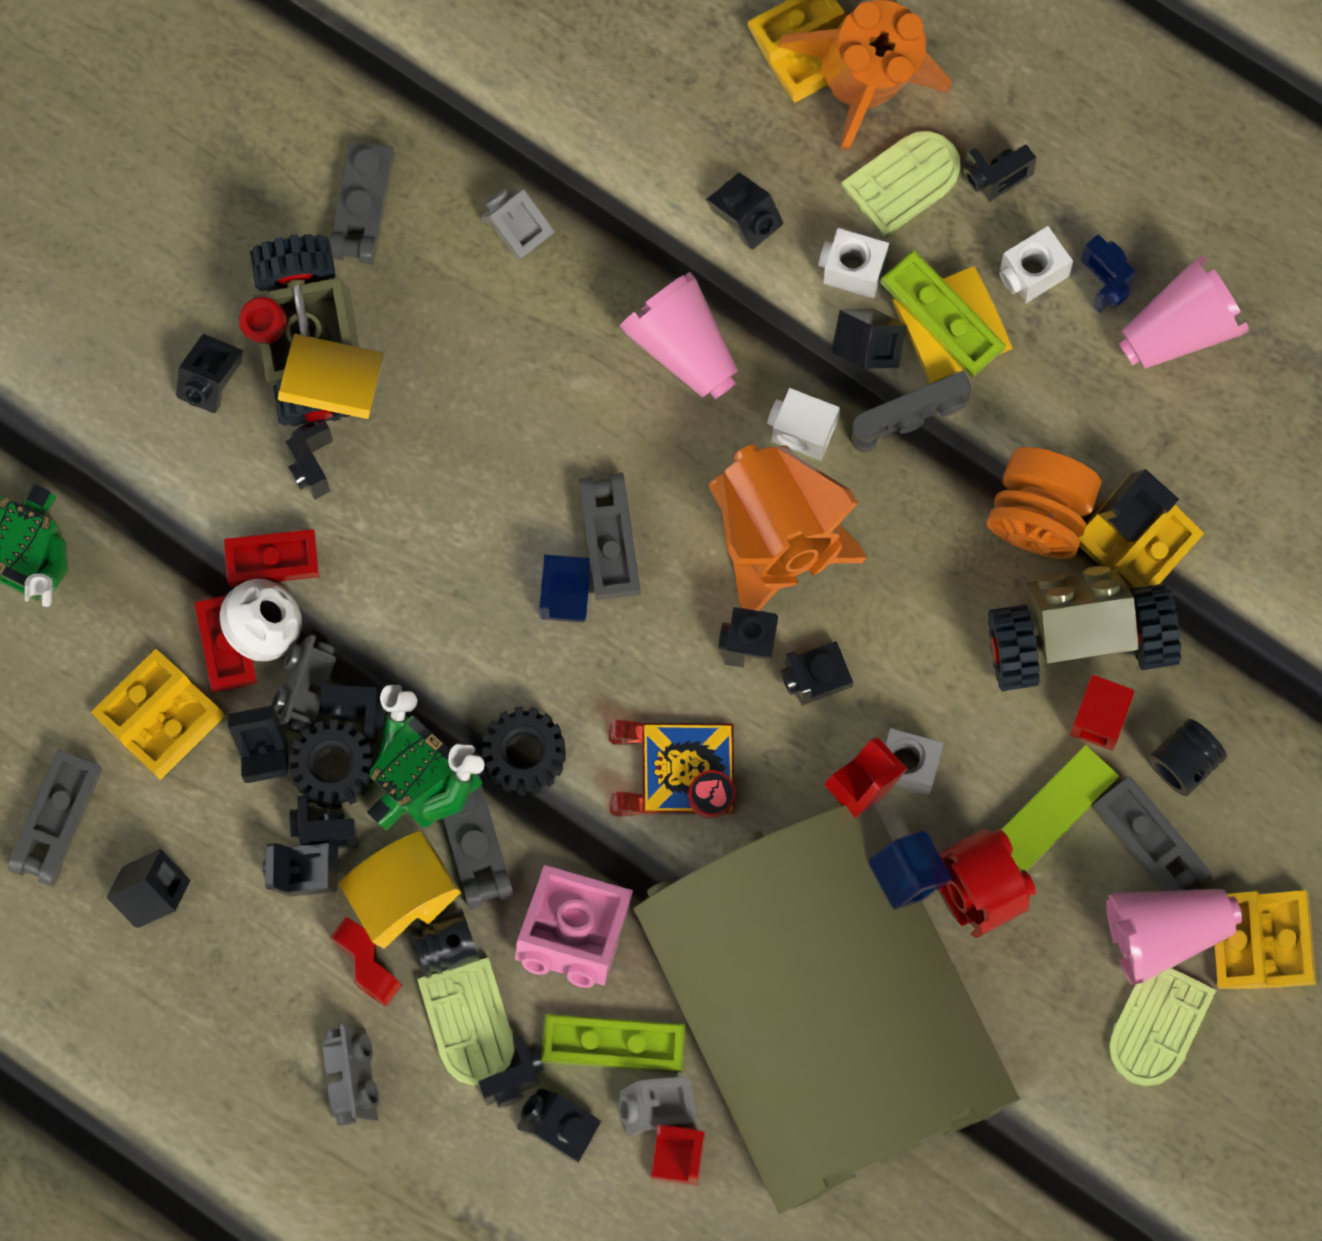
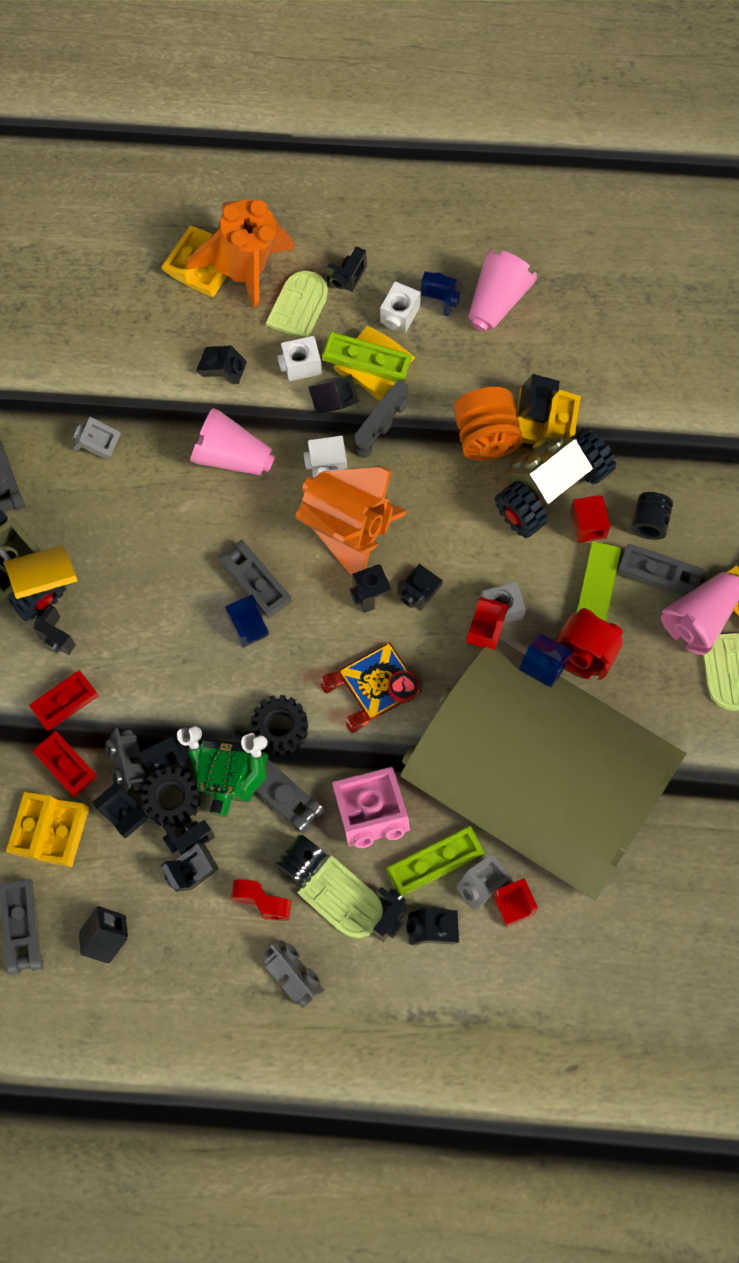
camera: 30 degrees left, 5 degrees down
(247, 628) = (74, 746): white piece -> none
(398, 887) = (255, 844): yellow slope -> none

